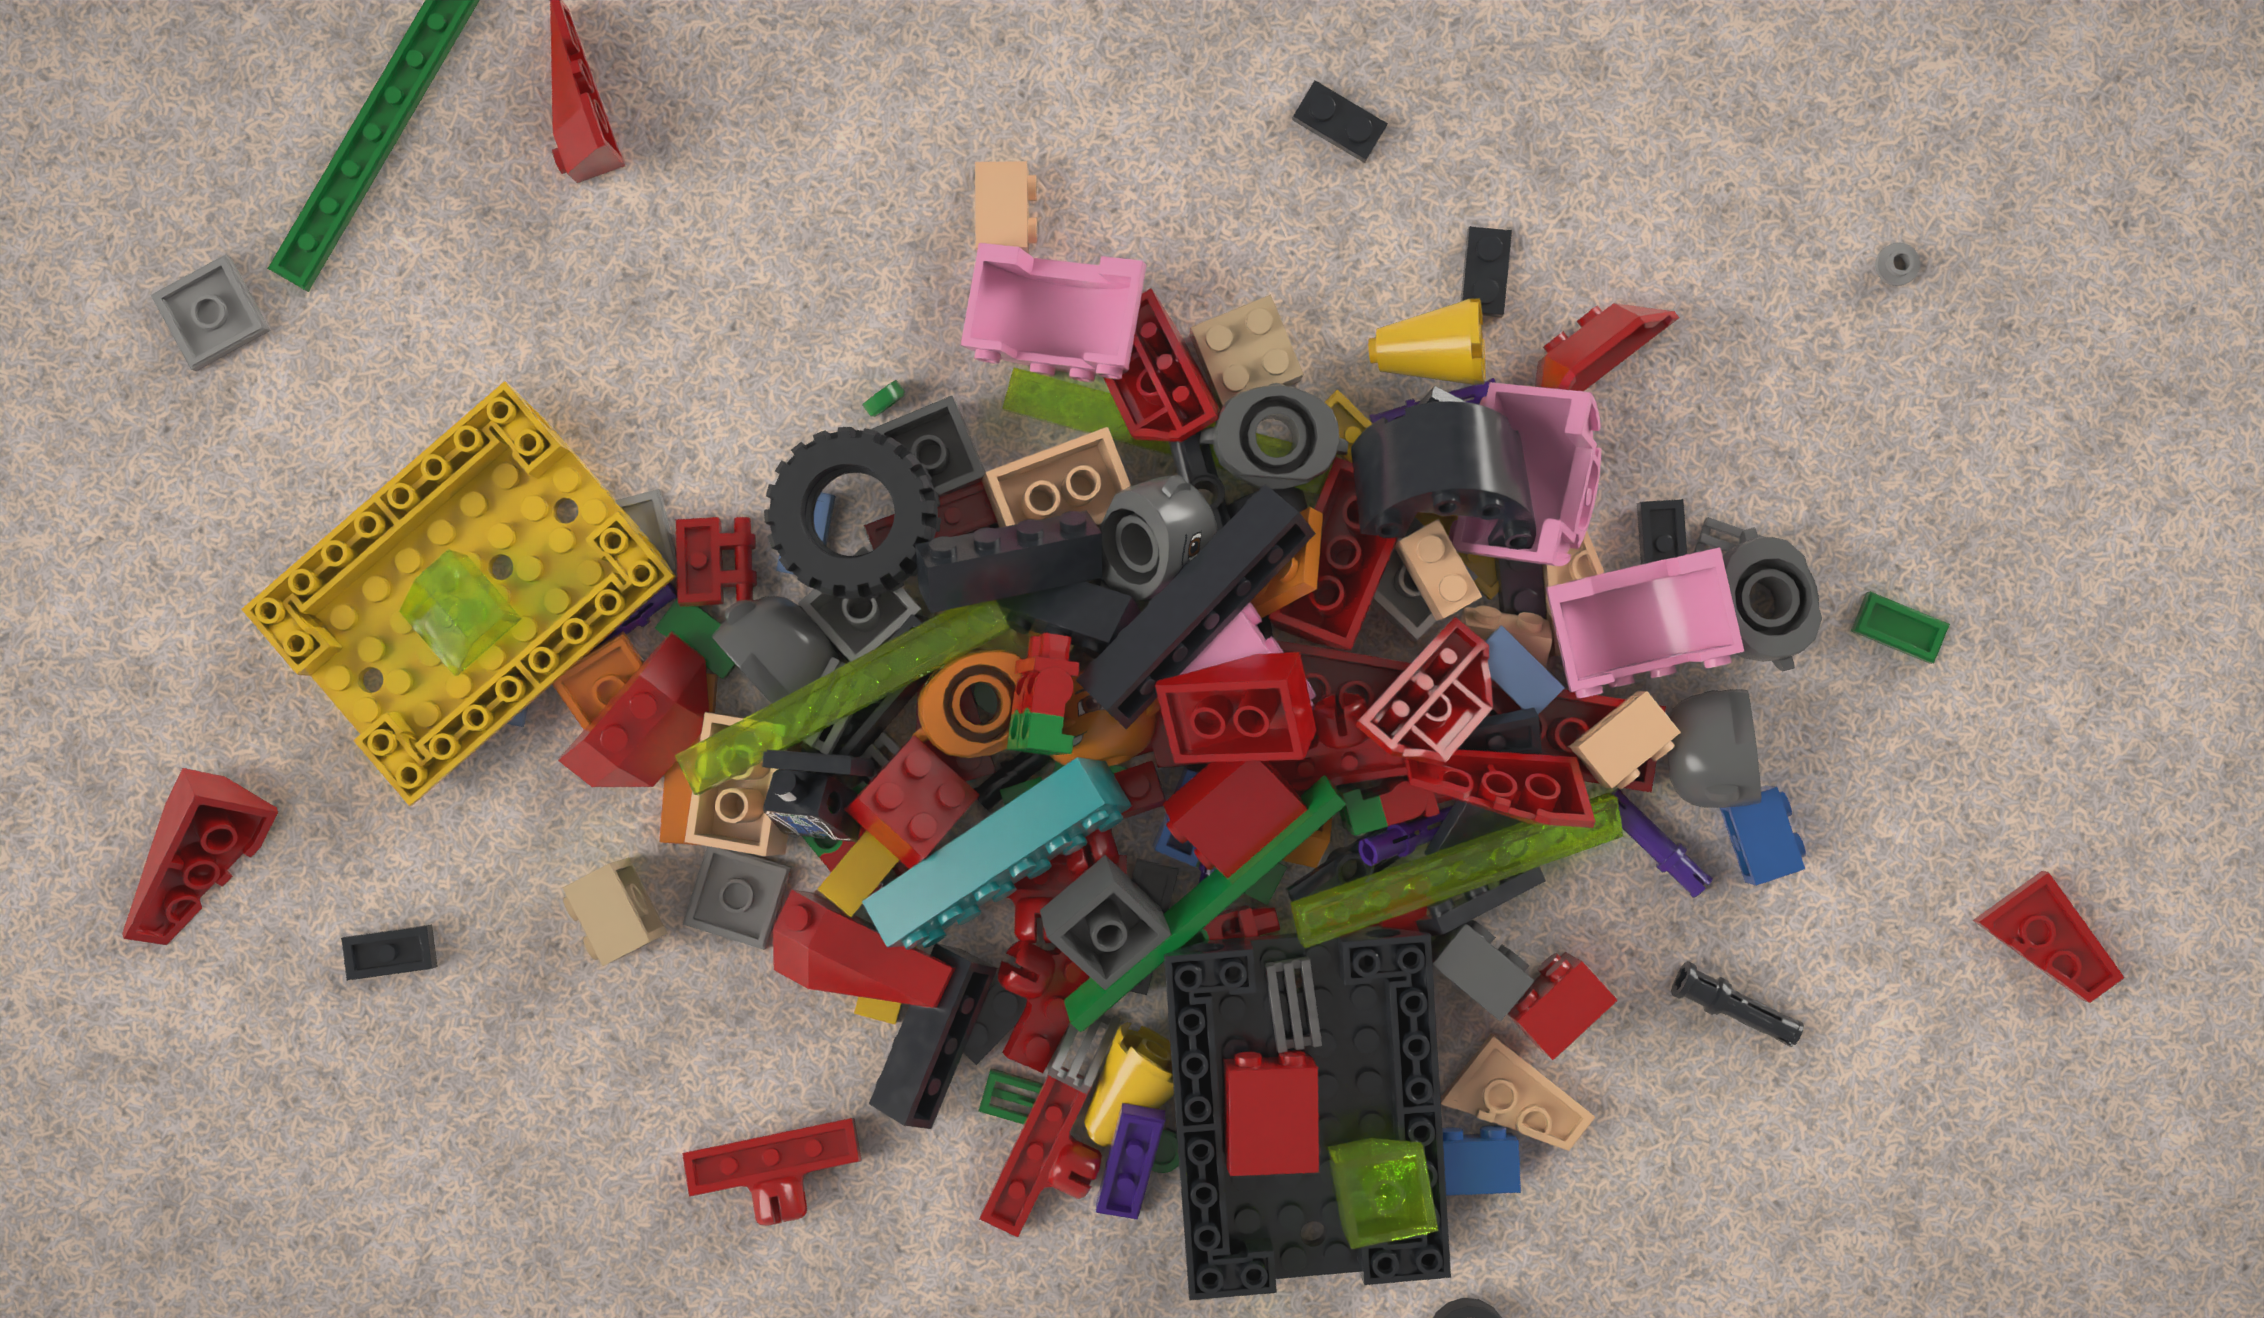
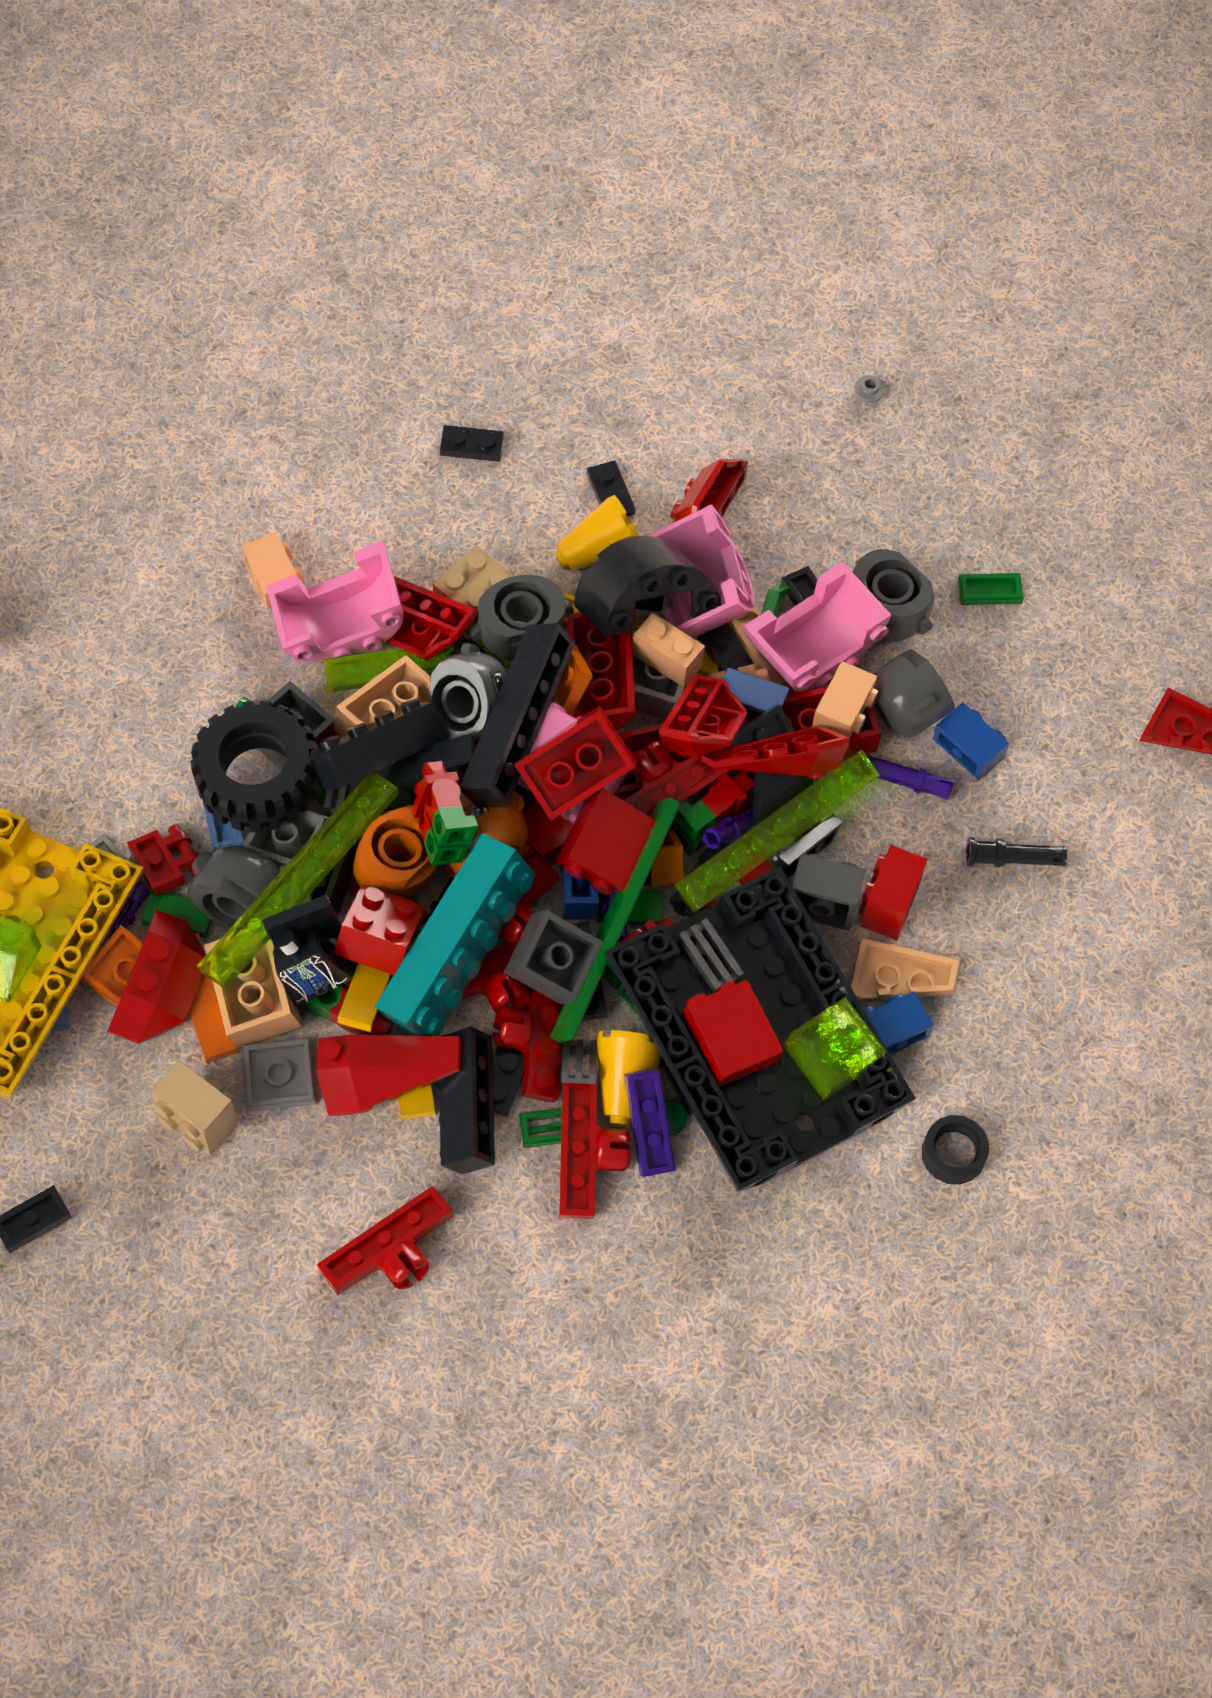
camera: 30 degrees left, 25 degrees down
(1610, 543) = (775, 599): none -> green tile

